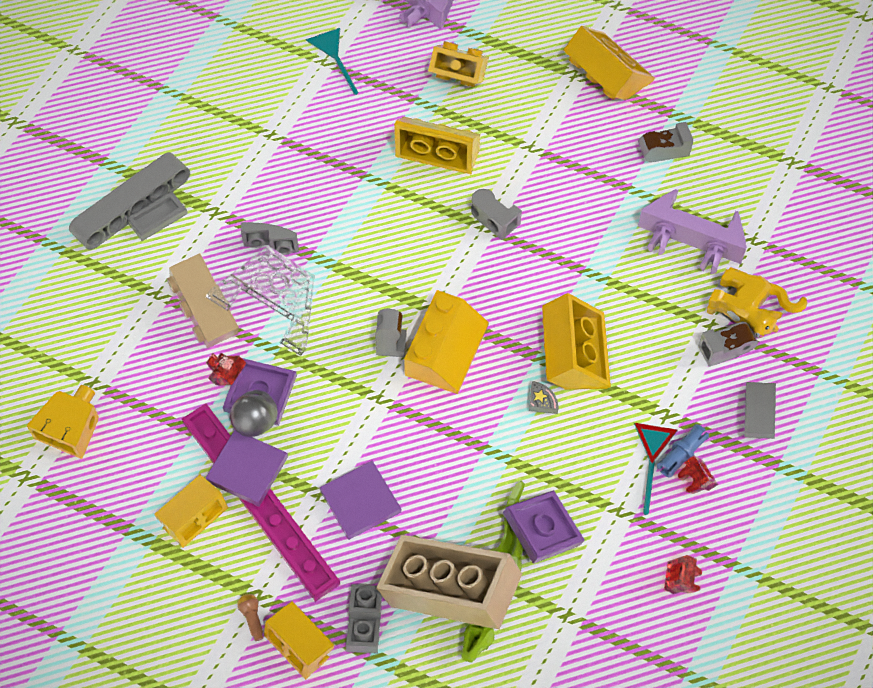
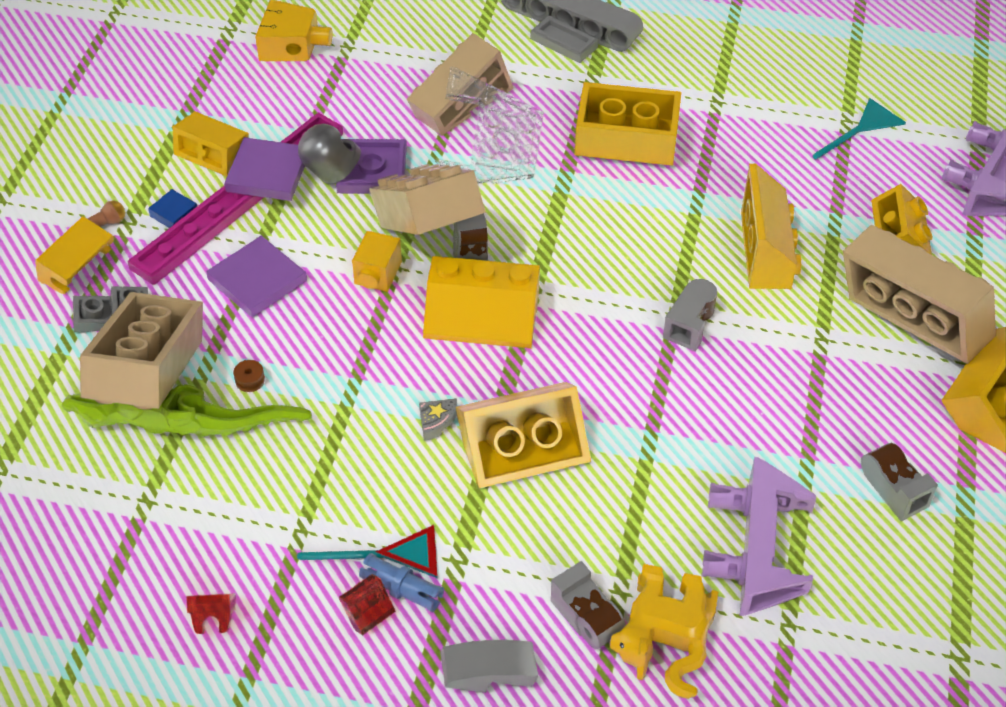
camera: 75 degrees right, 10 degrees down
(224, 368) = (385, 124): clear red tile -> none
(260, 555) = (171, 208): none -> blue tile
(278, 237) = (566, 118): light grey slope -> none
(293, 192) = (627, 123): none -> yellow brick
(357, 345) = (427, 198): none -> tan brick
(380, 405) = (377, 261): none -> yellow brick
(464, 516) = (249, 375): none -> dark orange piece
(536, 71) = (920, 293): none -> tan brick
(543, 526) = (251, 444): medium lavender tile -> none

